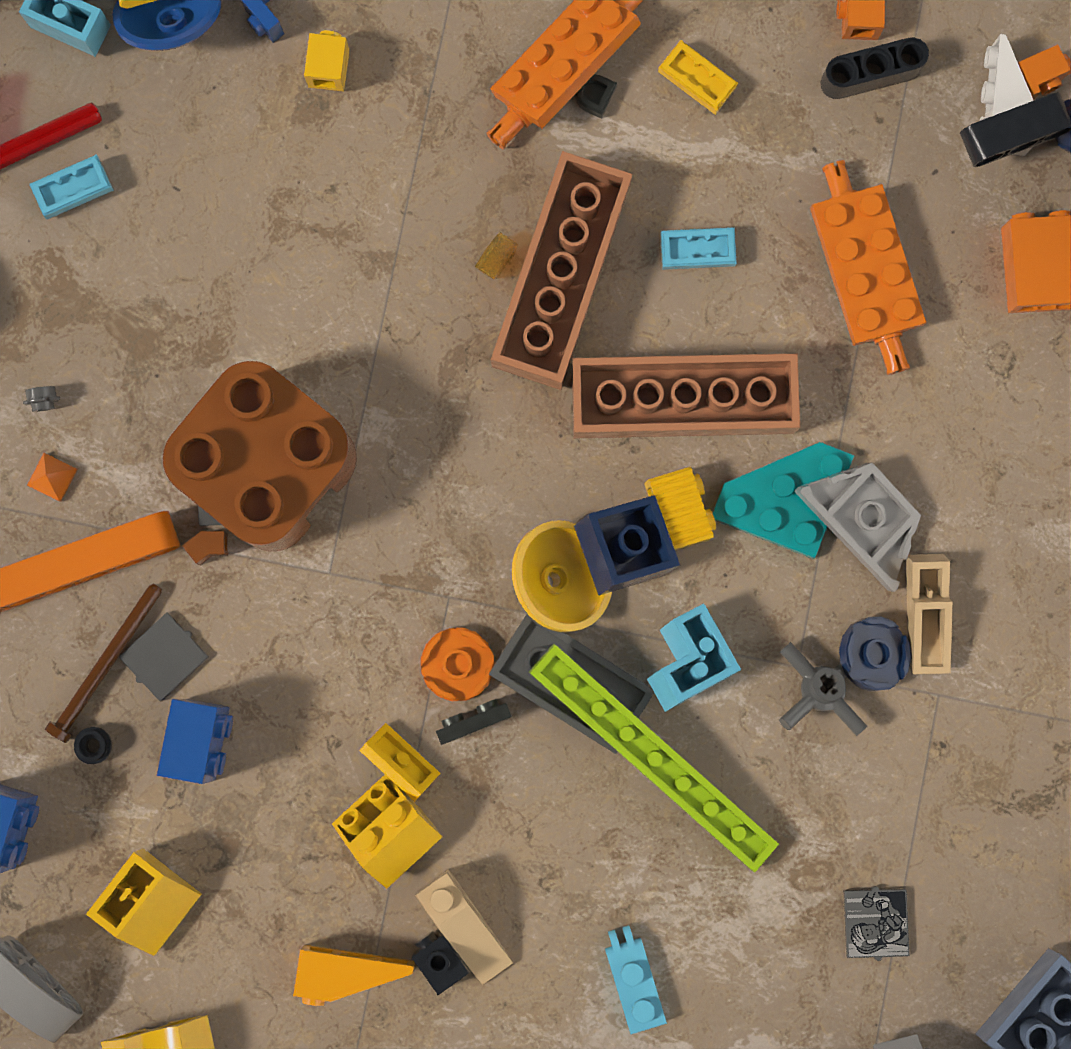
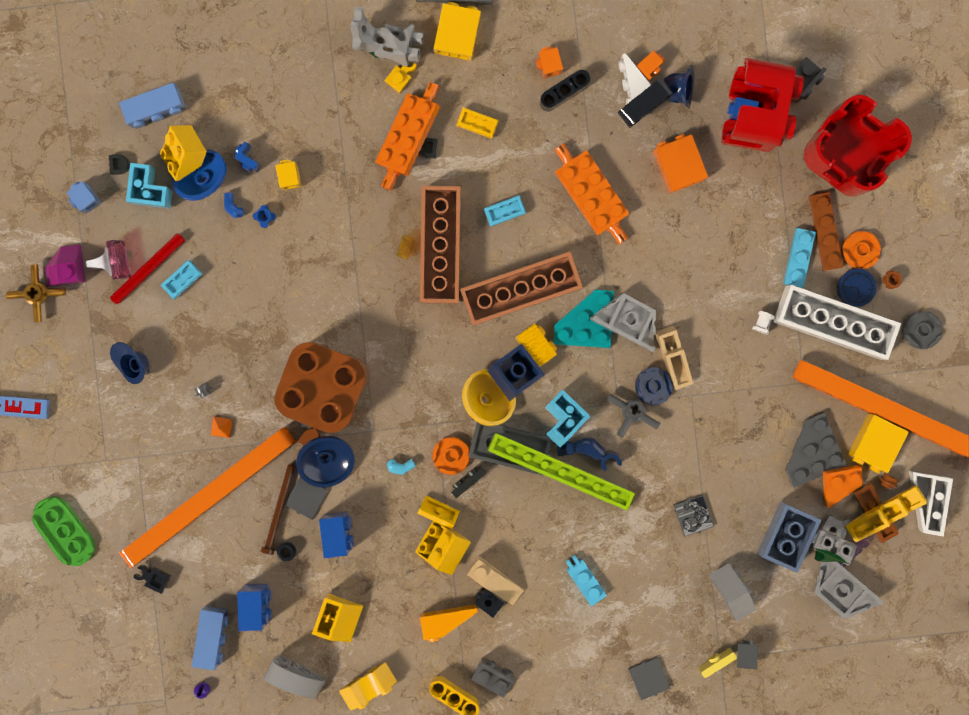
camera: 15 degrees left, 5 degrees up
(205, 89) = (230, 207): none -> blue arm
(215, 616) = (328, 469): none -> dark blue dish
(256, 112) = (259, 216): none -> blue plate
(353, 657) = (398, 468): none -> medium azure arm
(721, 731) = (589, 447): none -> dark blue piece

